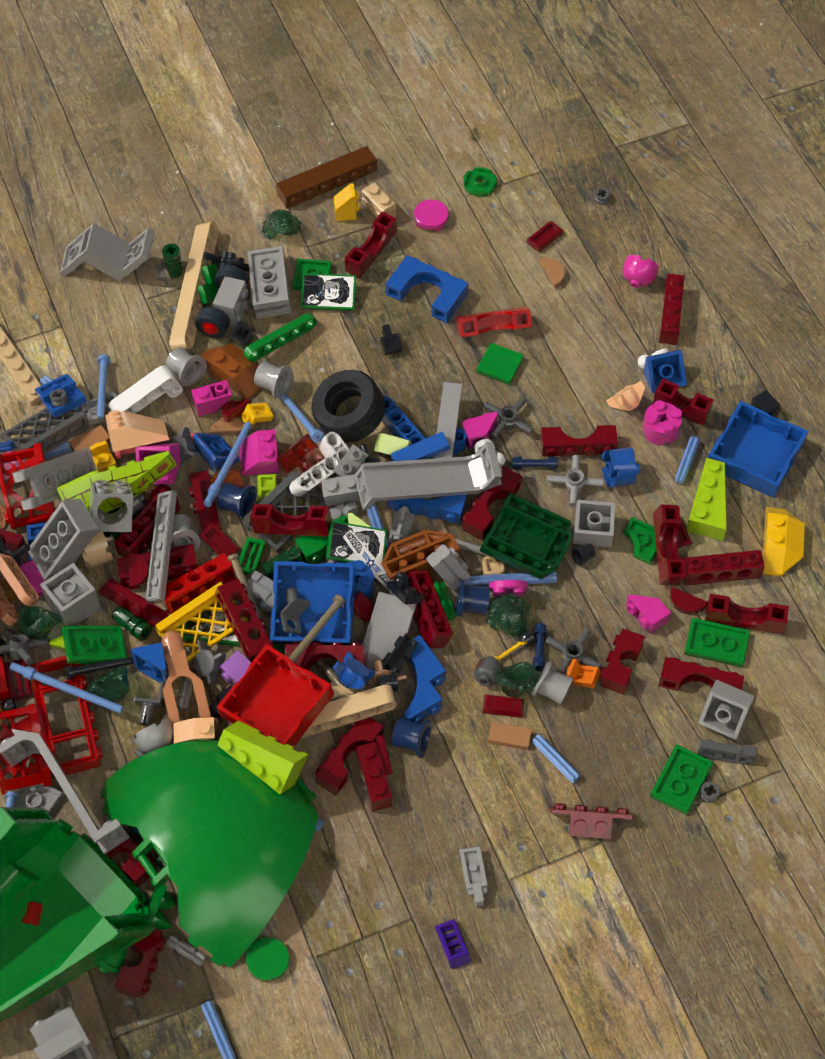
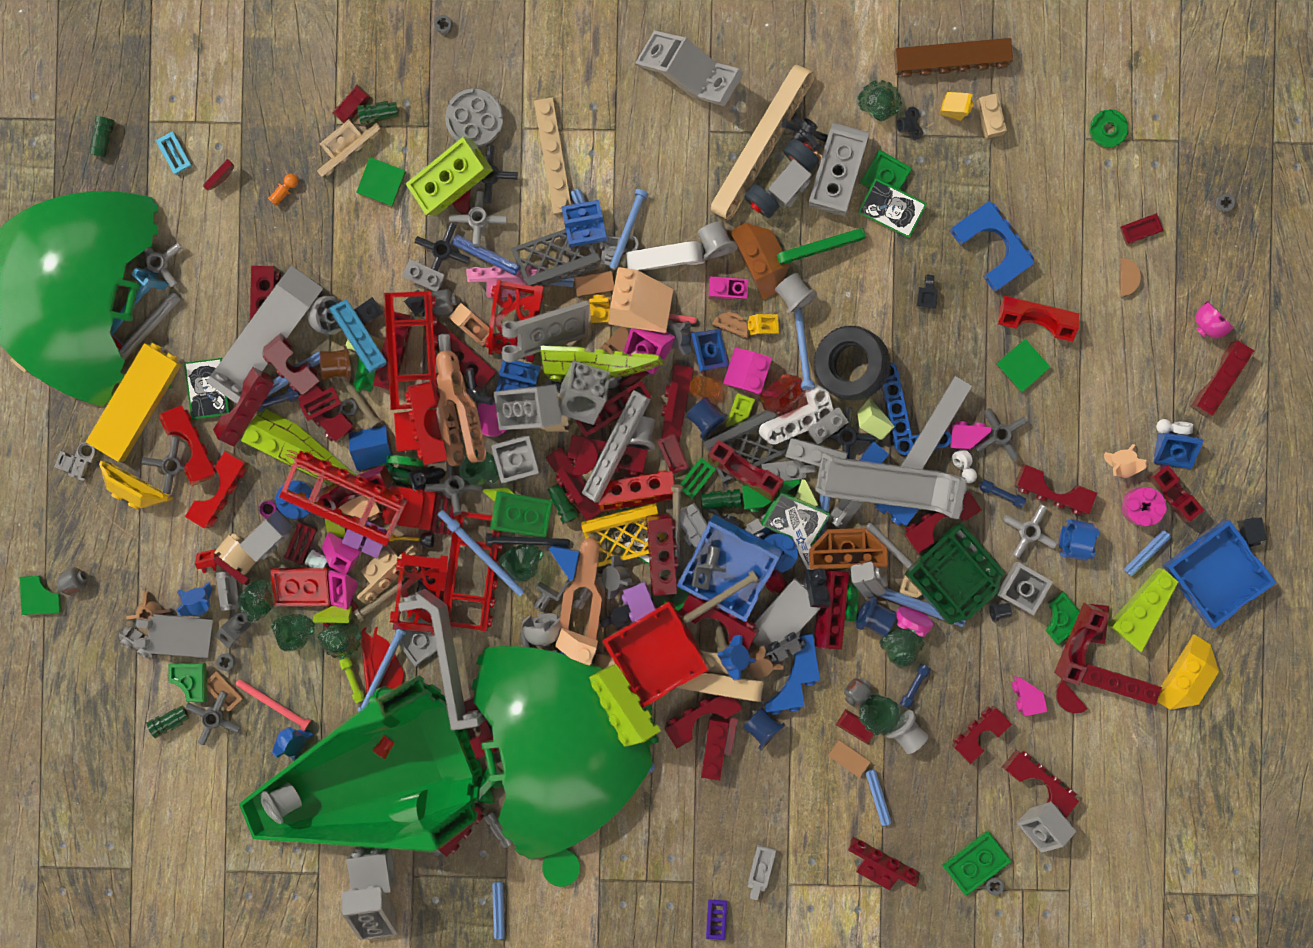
camera: 25 degrees right, 30 degrees up
(58, 398) = (580, 236): dark grey bush -> none
(172, 259) = (755, 100): dark green axle -> none
(209, 291) = (774, 155): green tile -> none
(214, 489) = (688, 403): medium blue bar -> none
(232, 409) = (743, 308): dark red tile -> none
(242, 335) = (785, 227): black brick -> none
(311, 233) = (910, 123): none -> black piece
(381, 233) = (959, 169): dark red arch -> none
(390, 679) = (763, 674): black piece -> none
(423, 449) = (897, 446): blue tile -> none
(431, 215) = (1038, 152): dark pink tile -> none
(525, 639) = (905, 674): hinge -> none
(573, 646) = (945, 714): dark grey bar -> none
(583, 675) = (940, 732): orange bracket -> none
(717, 642) = (1075, 750): green tile -> none
(727, 752) = (1029, 859): dark grey hinge -> none
(768, 618) = (1115, 741): dark red arch -> none

